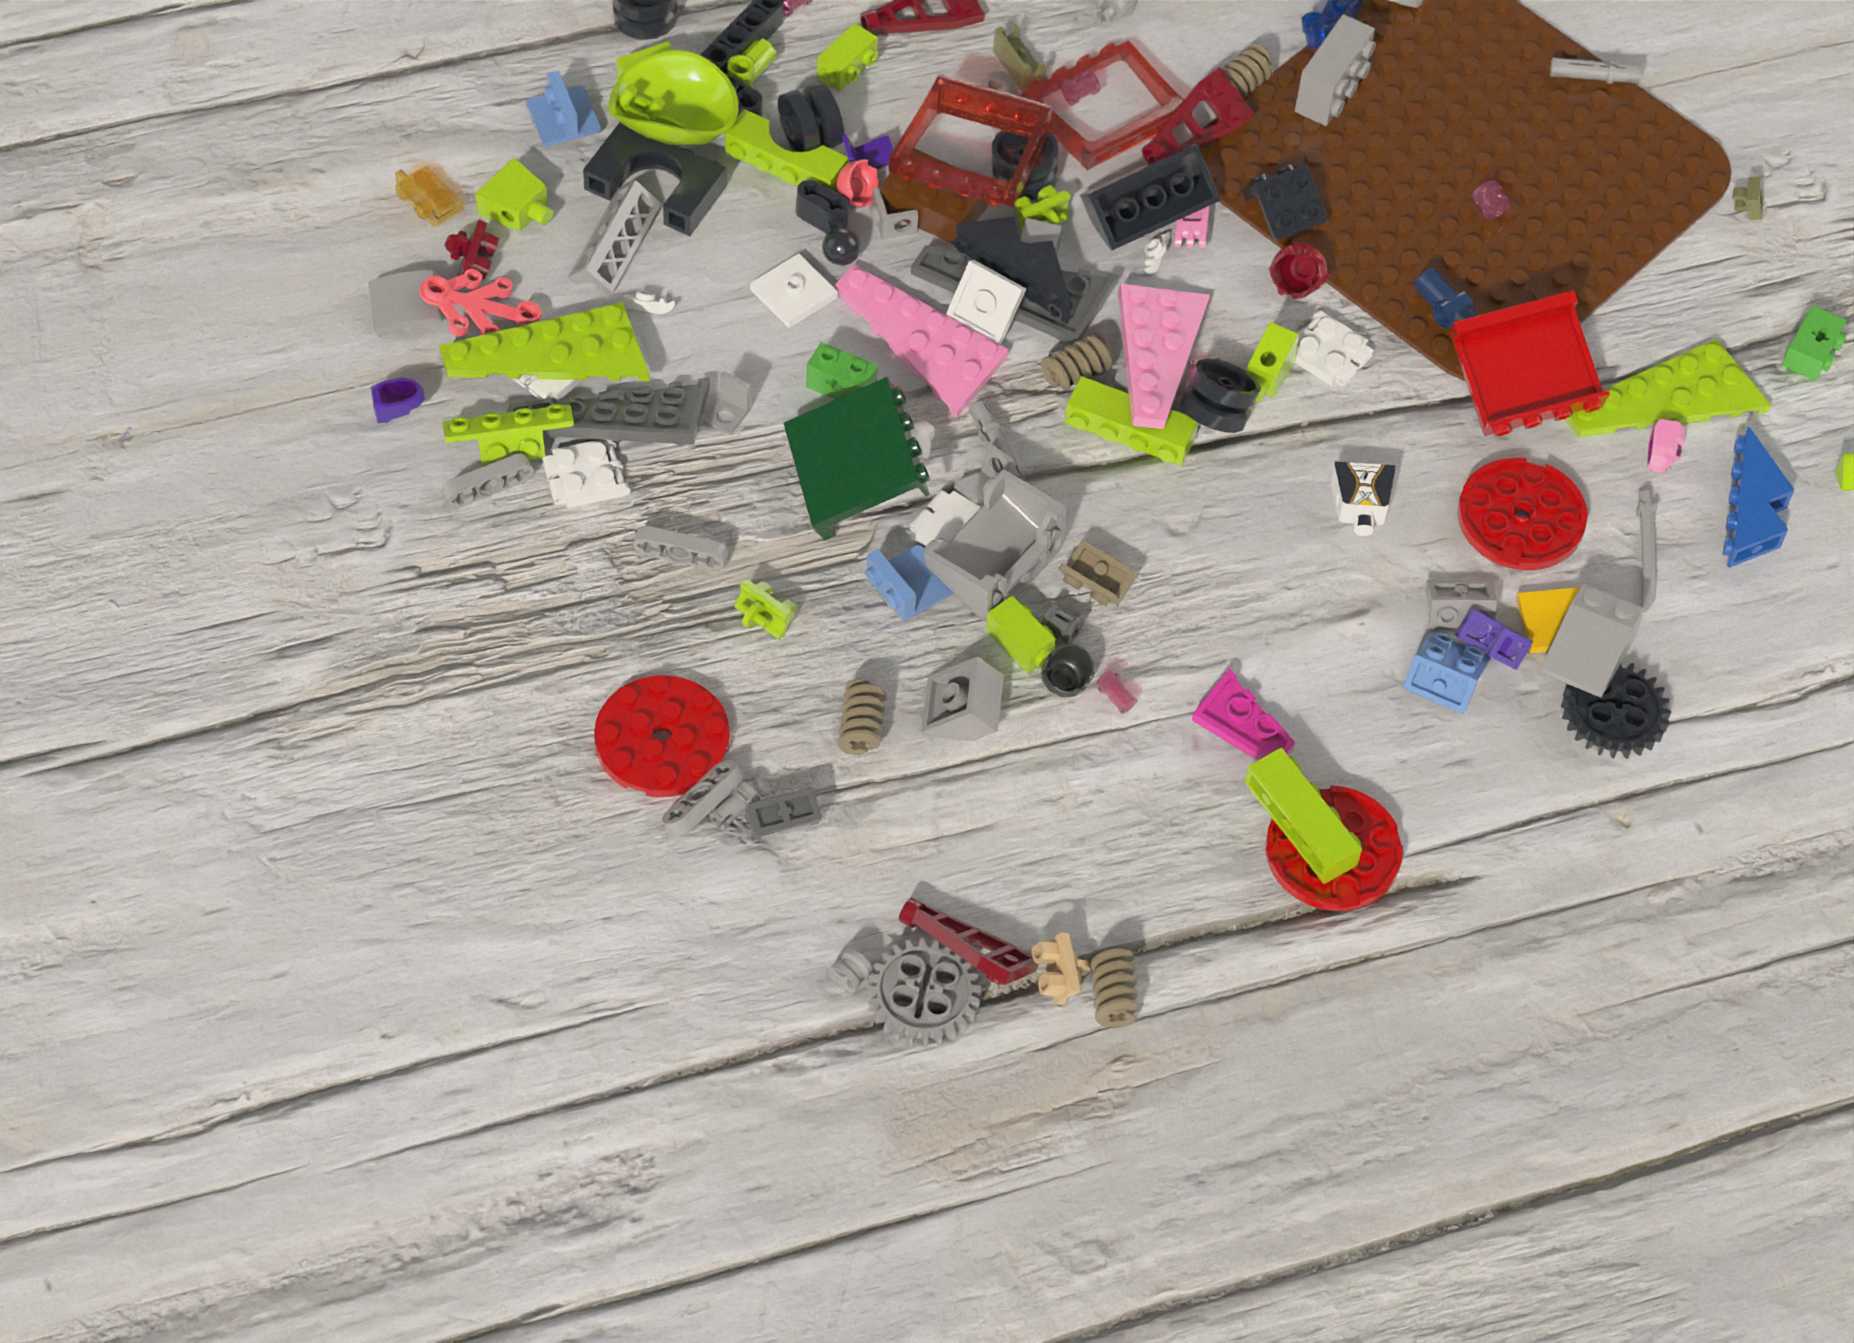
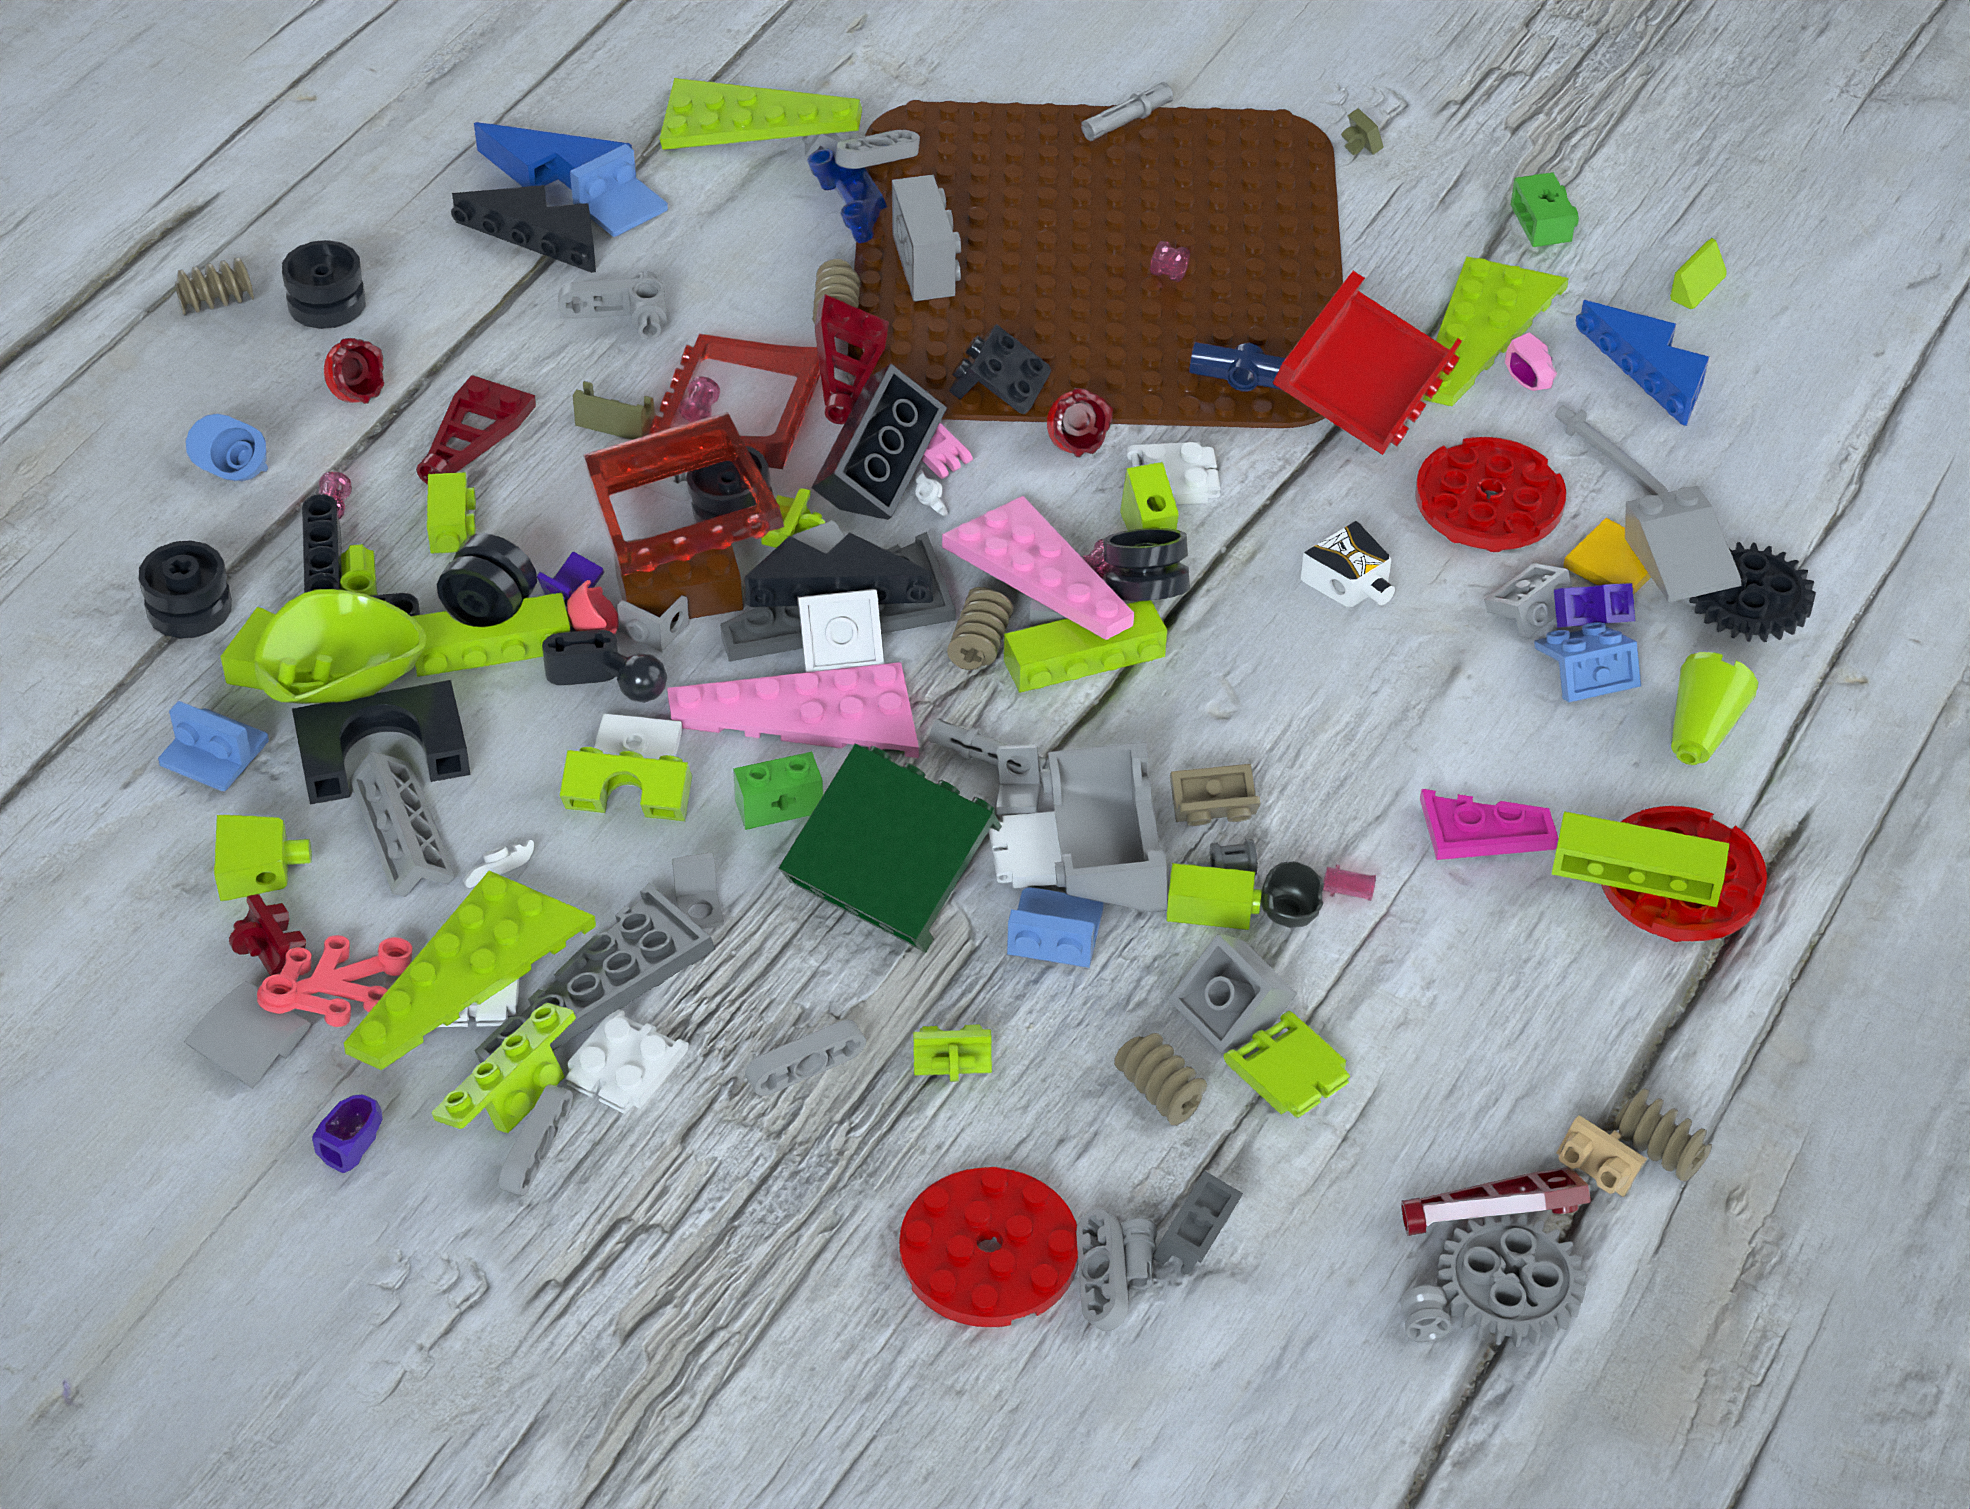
camera: 40 degrees left, 10 degrees down
(428, 196) = (152, 918): clear yellow bracket -> none
(775, 323) = (592, 777): none -> lime arch
(947, 771) = (1291, 1068): none -> lime plate
(1477, 759) = (1709, 704): none -> lime cone

